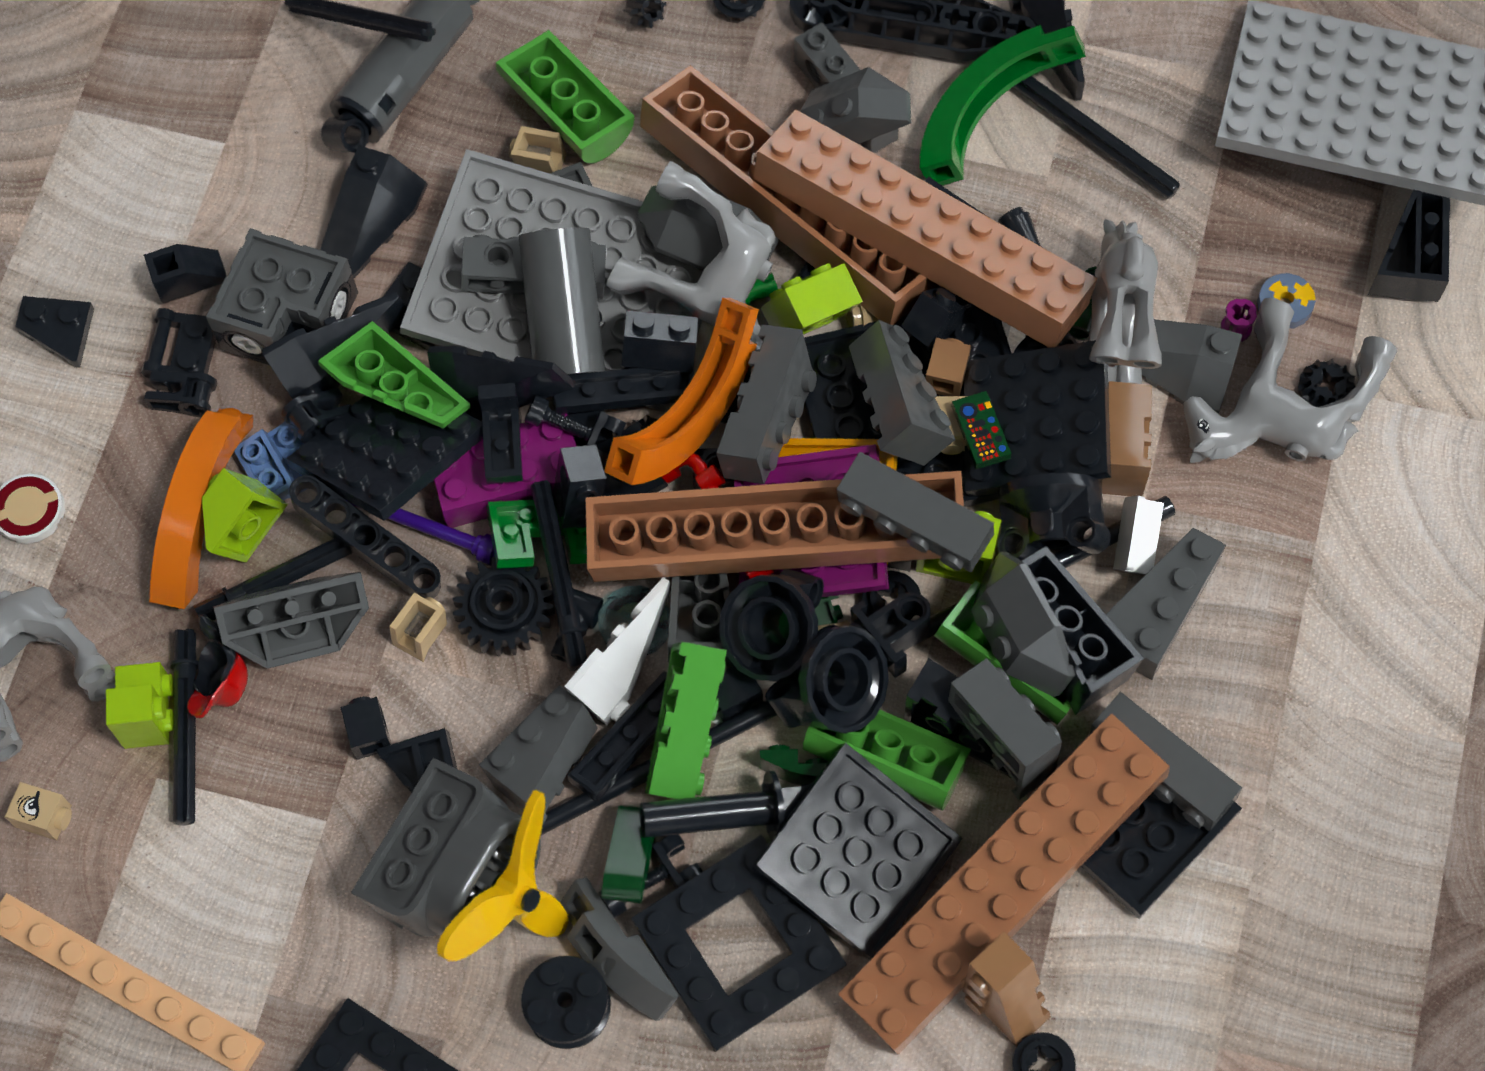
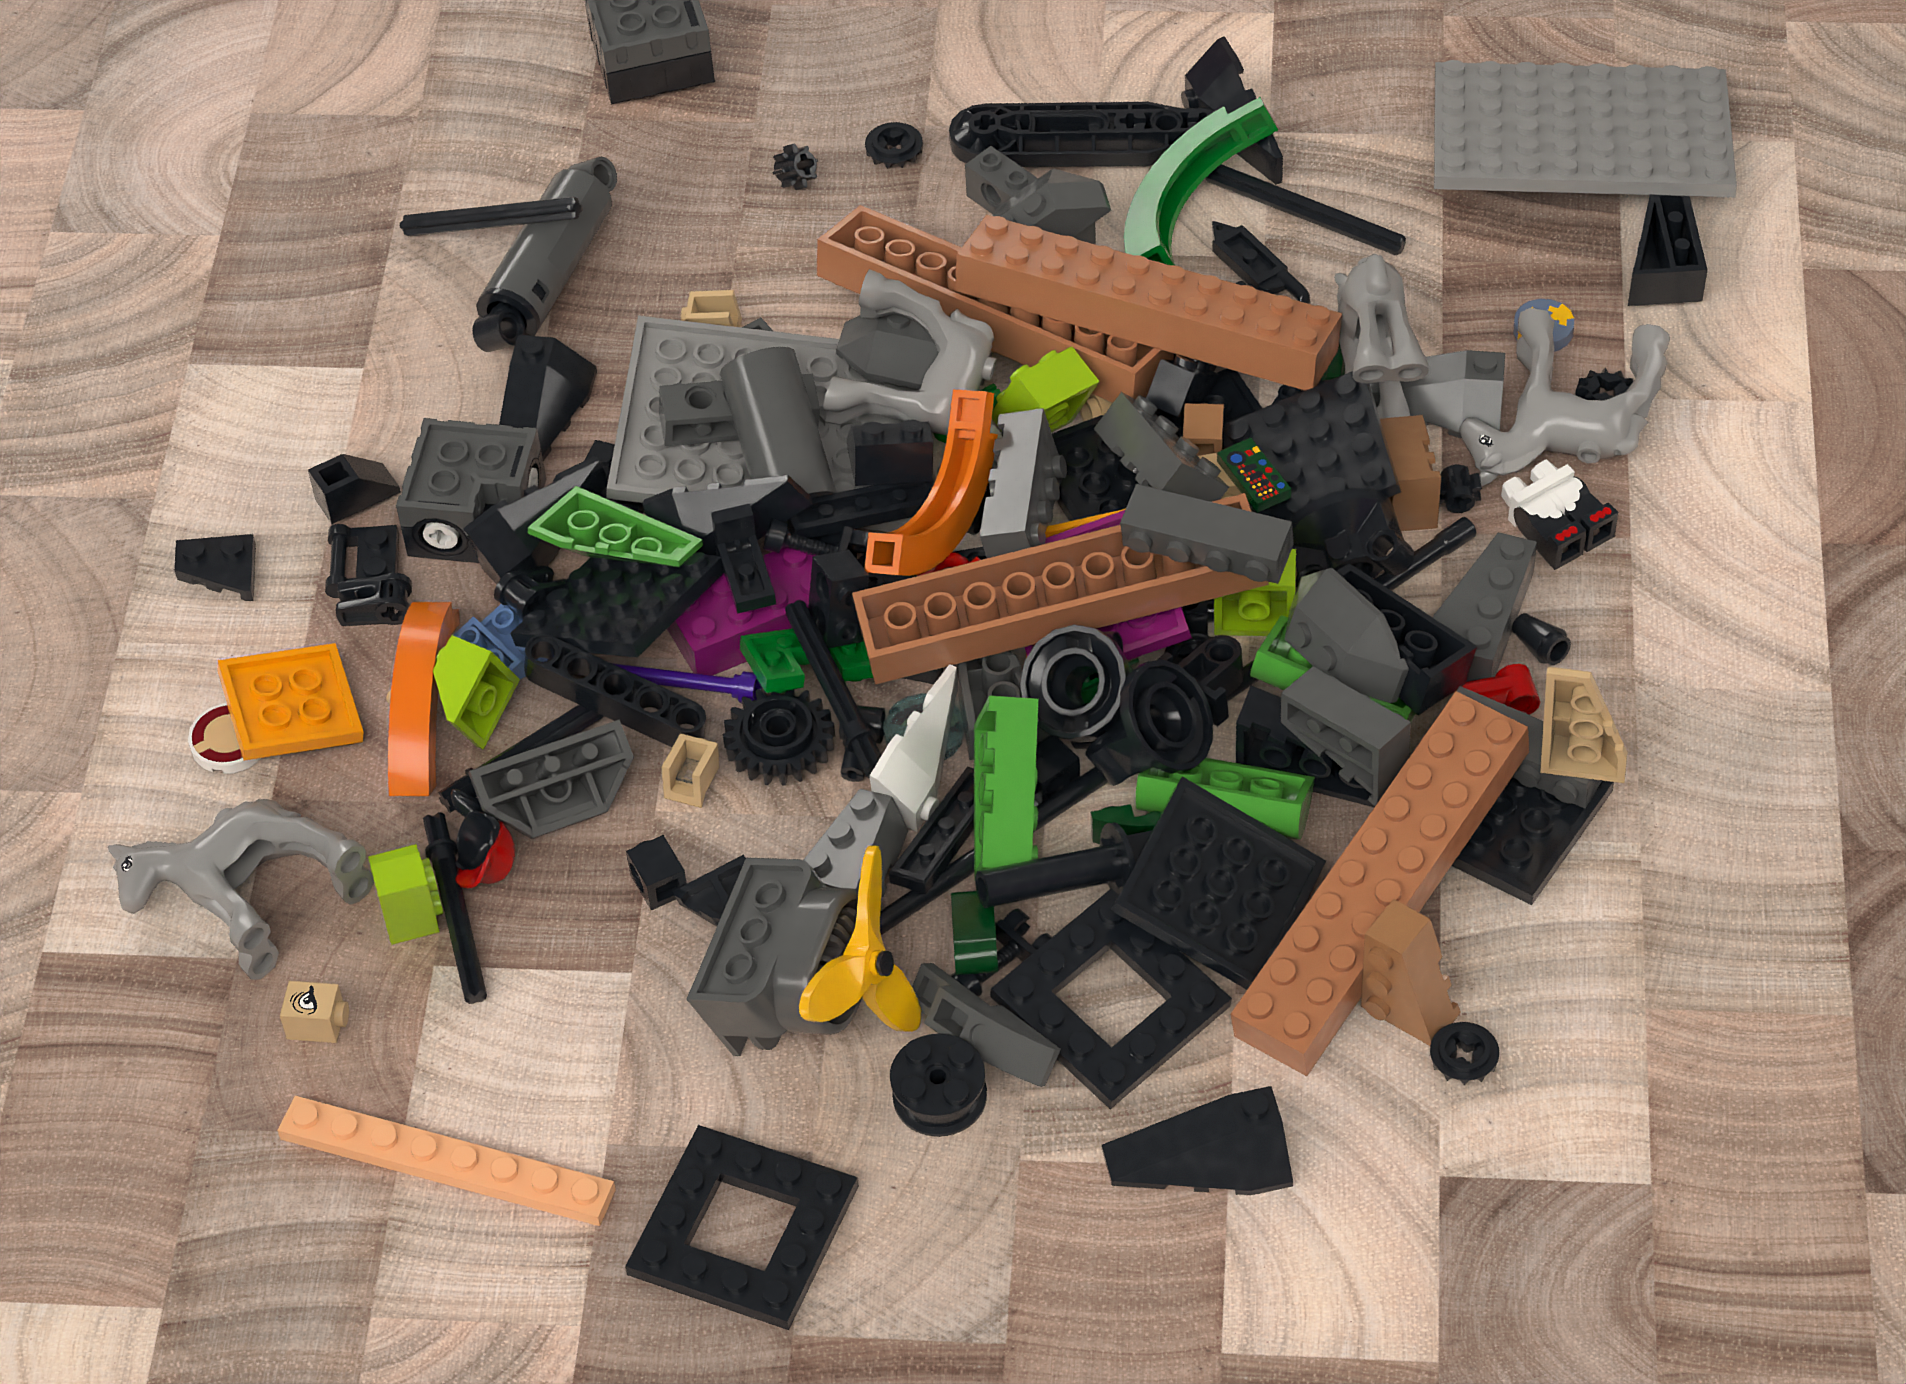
camera: 10 degrees left, 15 degrees down
(84, 486) = (290, 701): none -> light orange plate
(567, 97) = (733, 258): bright green brick -> none
(1039, 190) = (1254, 261): none -> black plate
(1138, 535) = (1441, 552): white panel -> none
(1166, 691) = (1510, 686): none -> red piece
(1169, 465) = (1459, 488): none -> black gear
(1210, 640) = (1543, 640): none -> black cone
(1215, 787) = (1579, 729): none -> tan wedge
(1235, 316) = (1493, 341): magenta bush -> none
(1254, 508) = (1558, 513): none -> hips

